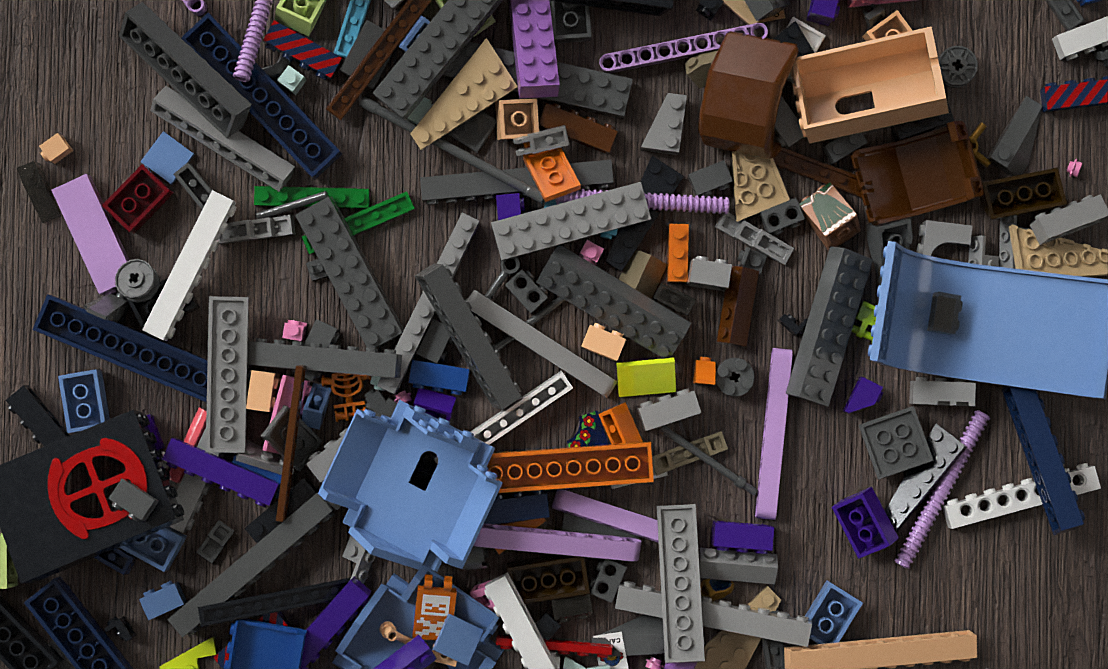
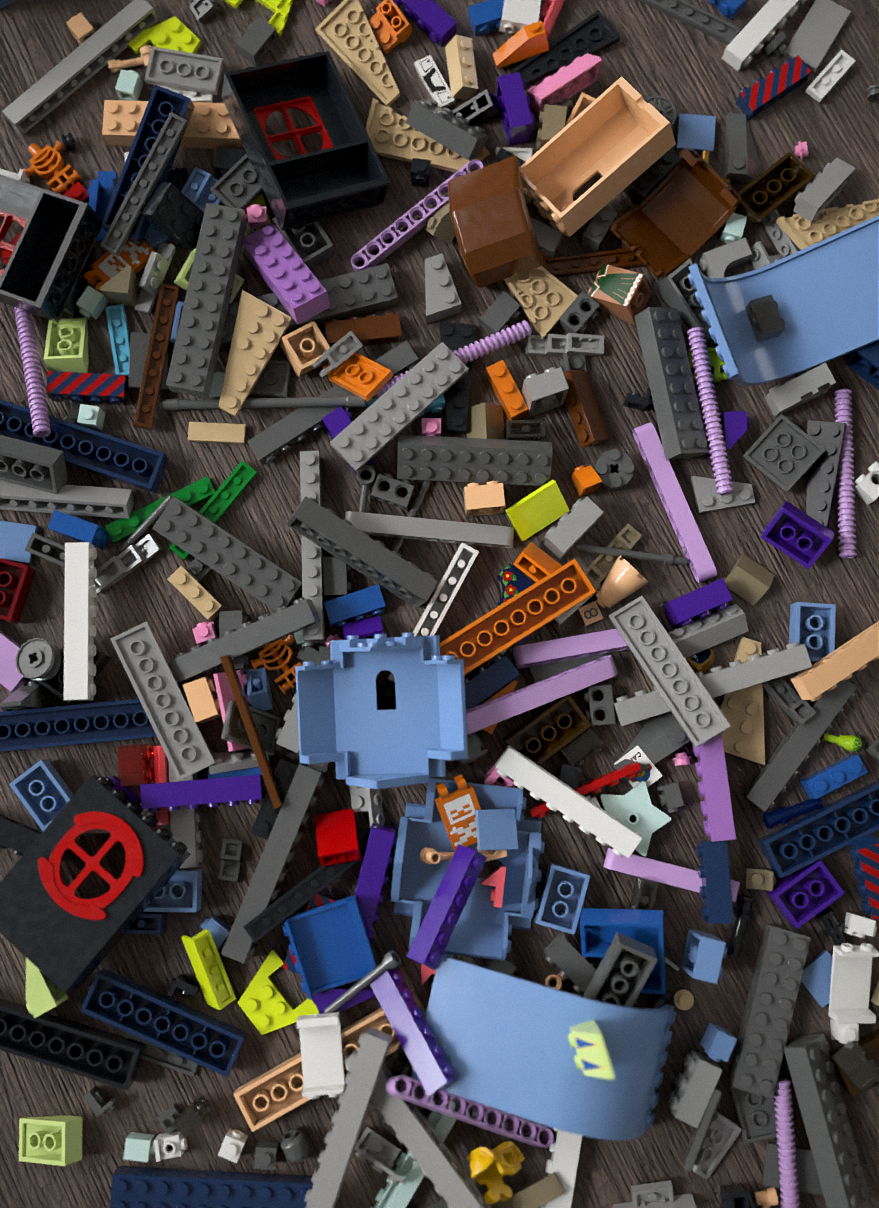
camera: 30 degrees left, 5 degrees down
(133, 500) = (130, 857): dark grey brick -> none
(150, 626) = (209, 969): none -> neon yellow panel
(175, 416) = (135, 764): none -> clear red brick
(229, 180) = (78, 529): none -> blue brick
(304, 291) = (196, 593): none -> tan brick
(317, 572) = (337, 837): none -> red brick
(397, 152) = (216, 432): none -> tan tile
(644, 493) = (590, 613): none -> light nougat tile
(684, 481) = (619, 583): none -> light nougat cone
(802, 538) = (748, 580): none -> dark tan slope
(819, 448) = (708, 499): none -> light grey wing
(848, 373) = (710, 410): none -> lavender piece
(852, 28) = (550, 123): none -> dark tan brick
(968, 211) = (733, 228): none -> light aqua brick
(985, 100) = (695, 132): none -> medium blue tile

